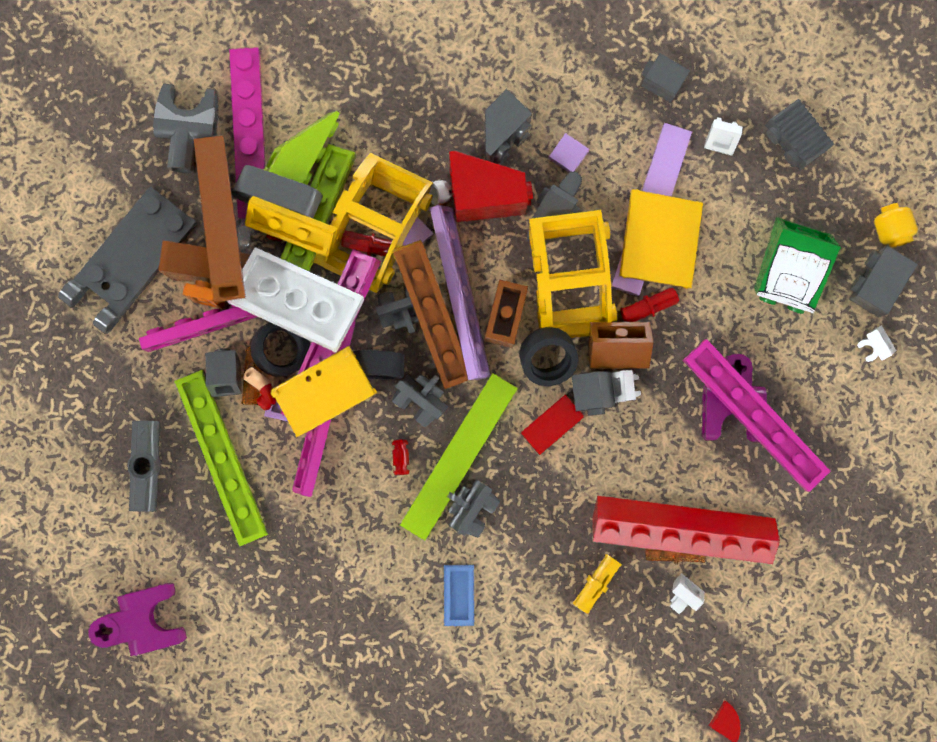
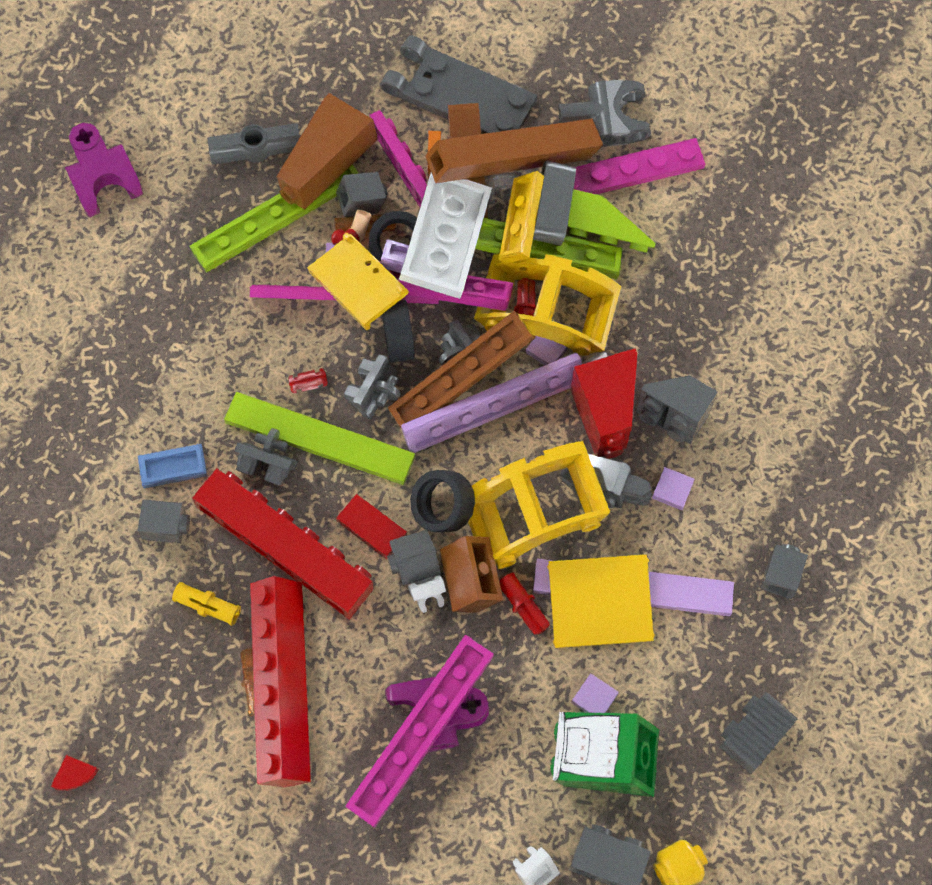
camera: 85 degrees right, 15 degrees down
(170, 398) = (325, 151): none -> dark orange slope
(303, 352) = (394, 255): none -> lavender tile
(506, 313) = (479, 449): dark orange brick -> none
(515, 611) = (163, 521): none -> dark grey brick
(555, 506) = (284, 543): none -> red brick
(686, 594) = (210, 700): white tile -> none
(723, 136) = (734, 647): white tile -> none
(741, 263) = (594, 696): none -> lavender tile

